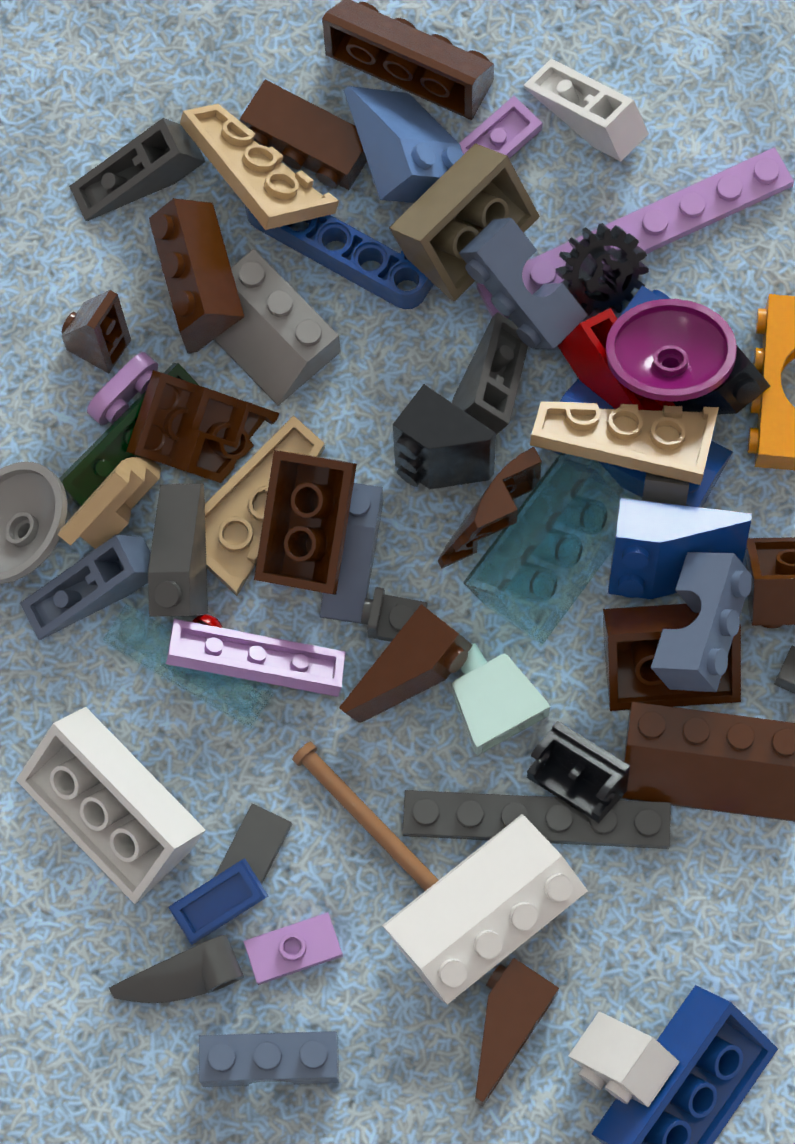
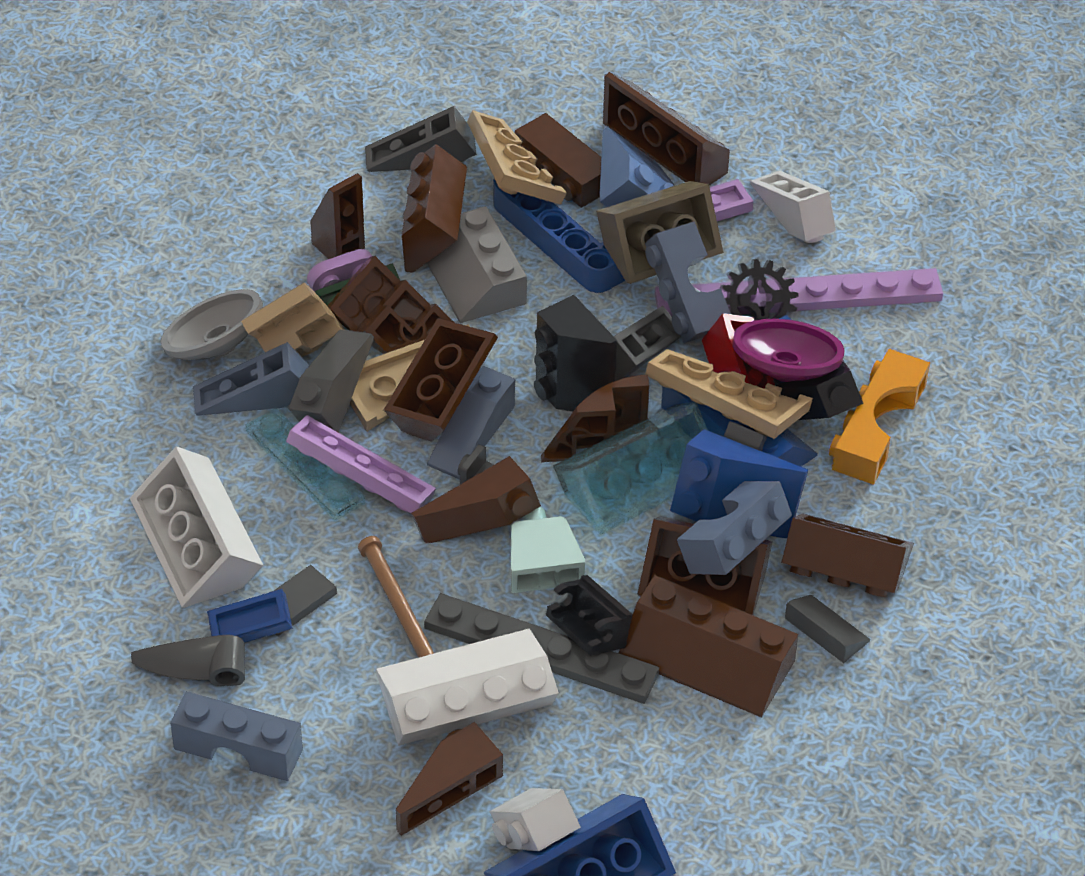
camera: 15 degrees right, 25 degrees down
(293, 948) = (295, 674): lavender plate -> none

